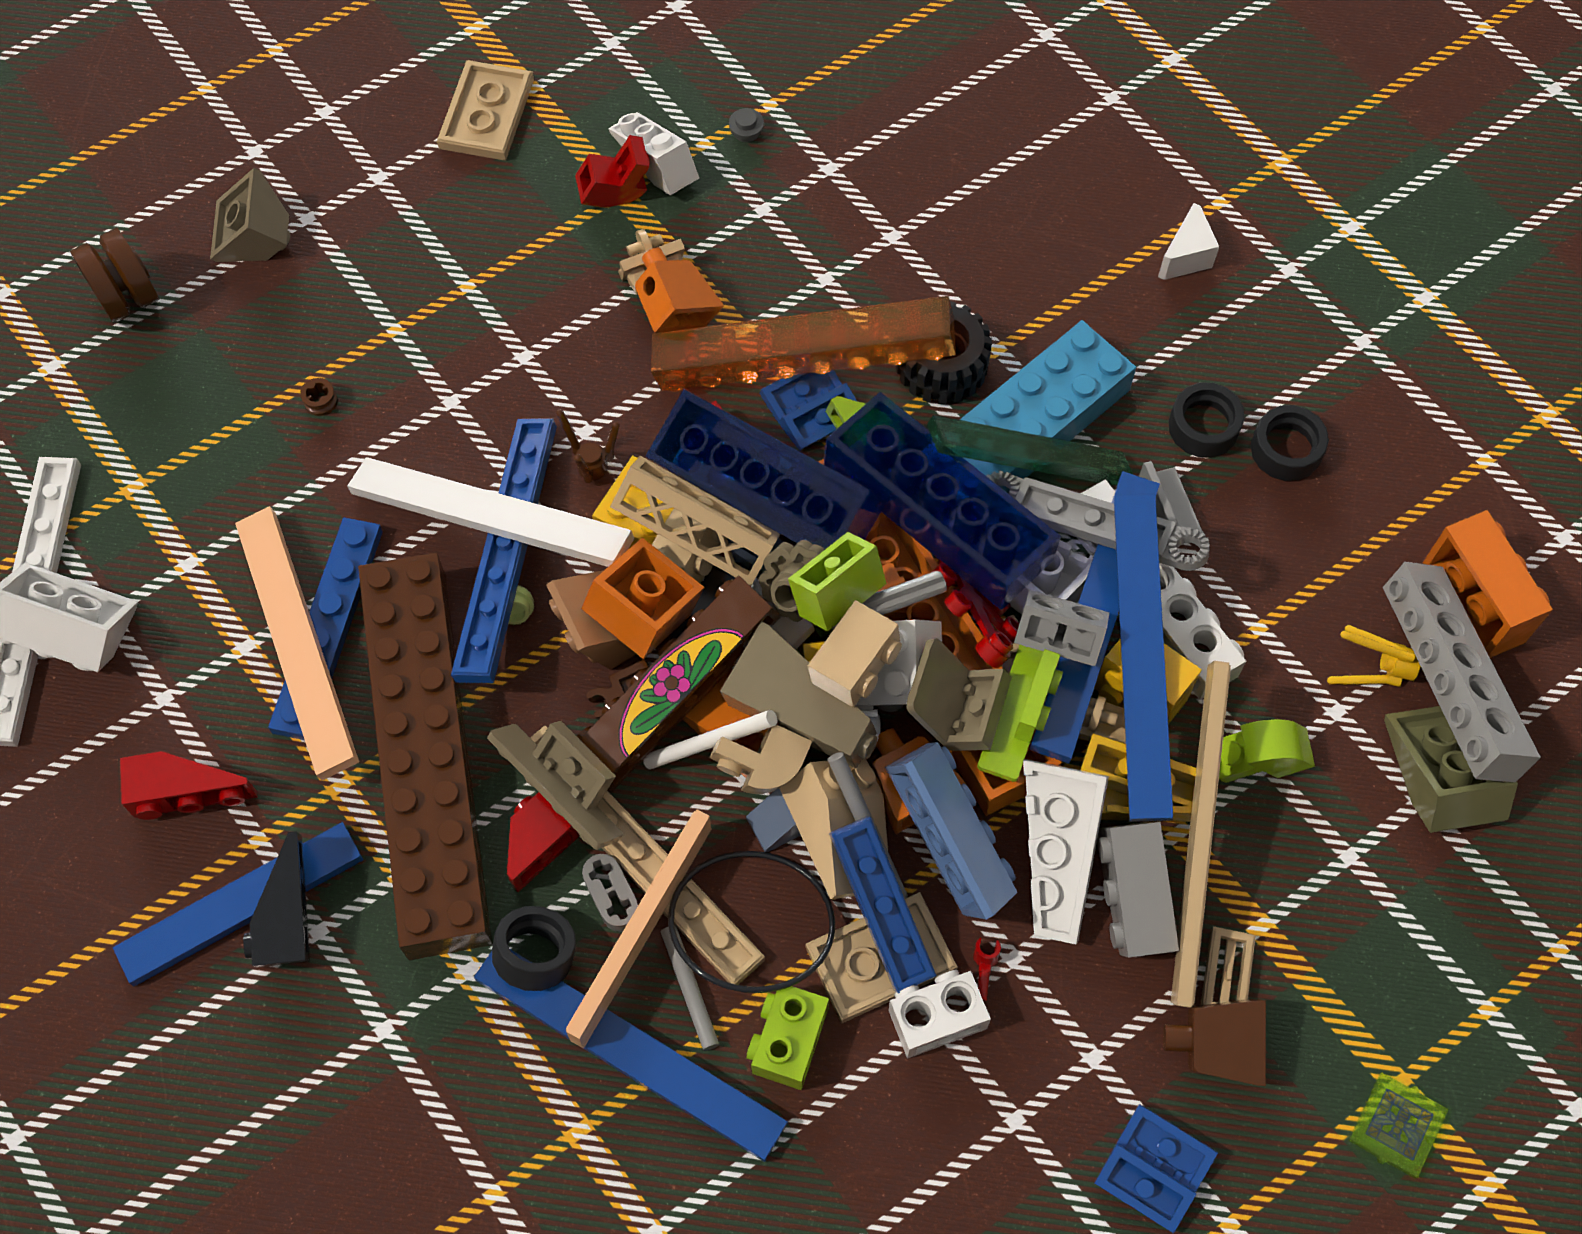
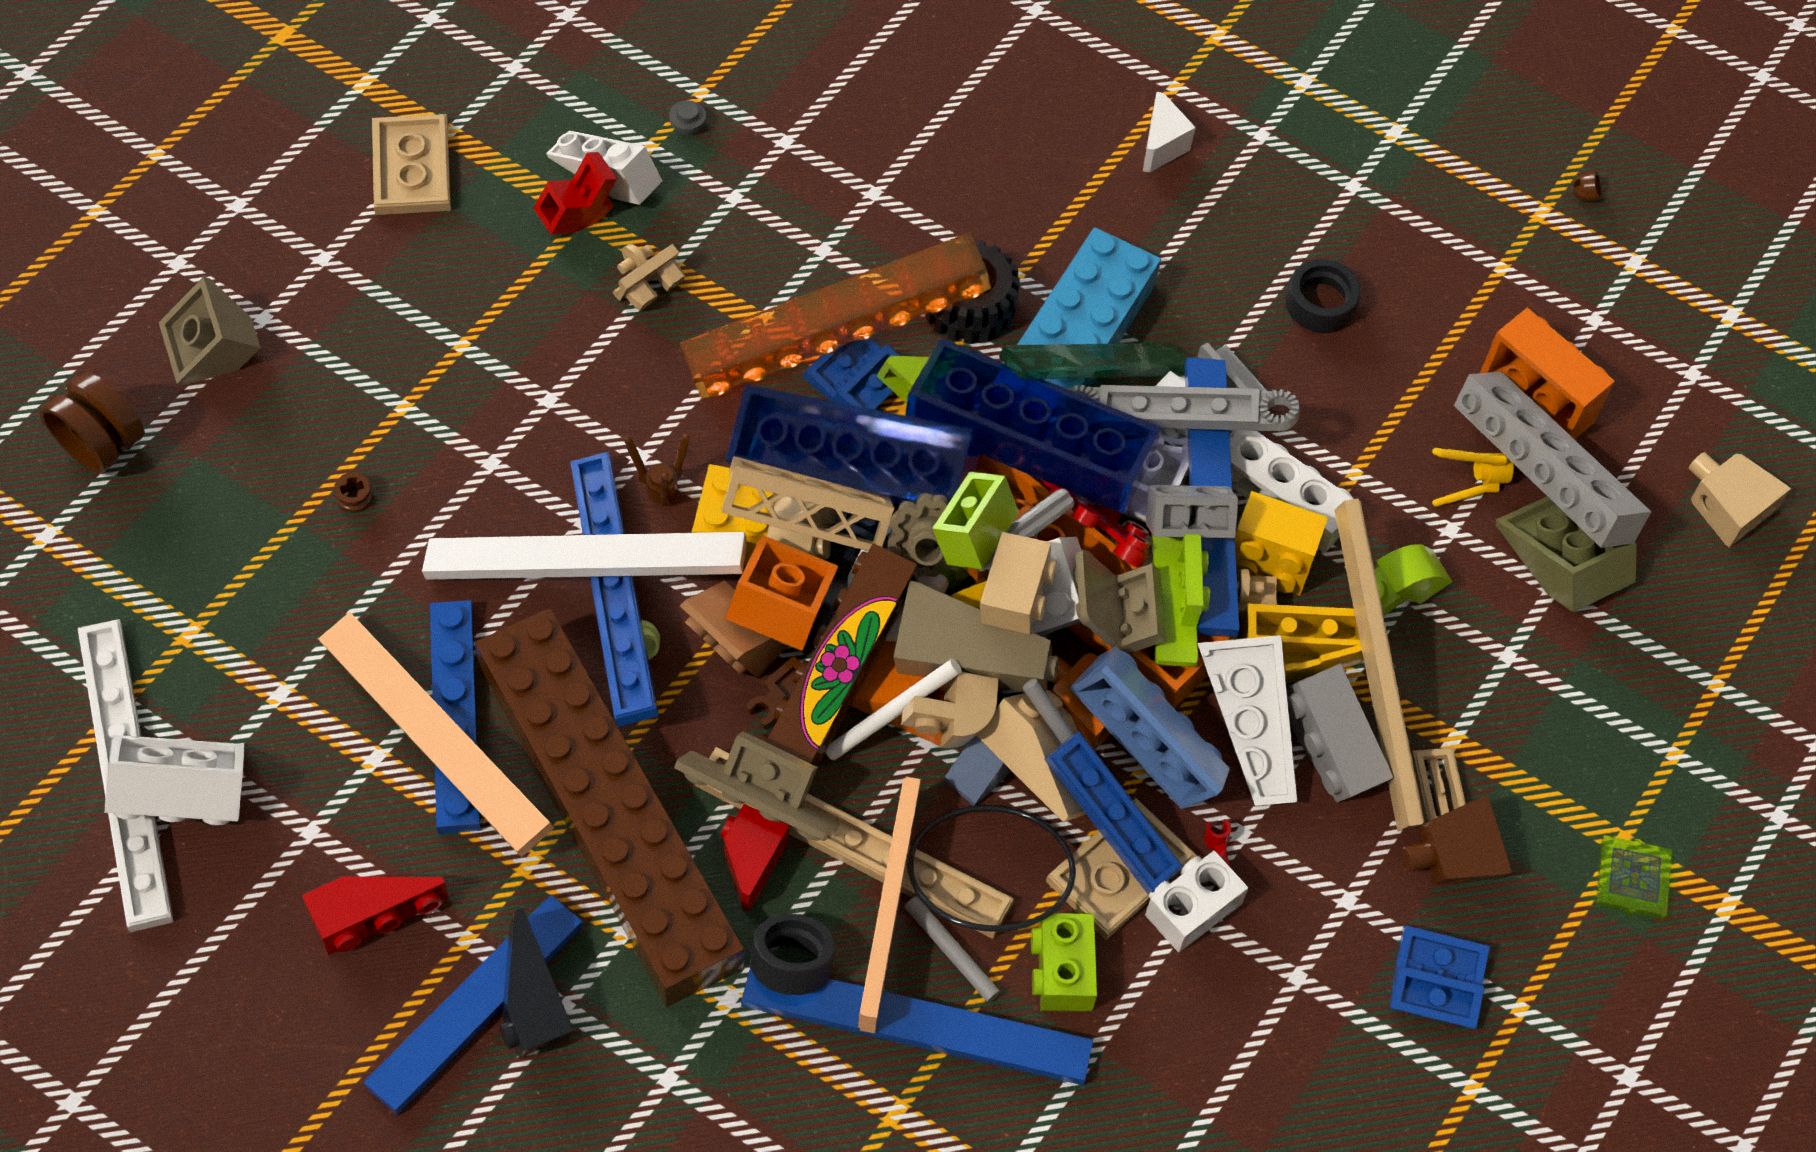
camera: 25 degrees left, 5 degrees down
(602, 897) = (849, 878): light grey beam -> none
(675, 294) = (688, 298): orange torso -> none
(1143, 659) = (1273, 520): blue tile -> none
(1213, 396) = (1240, 270): black tyre -> none

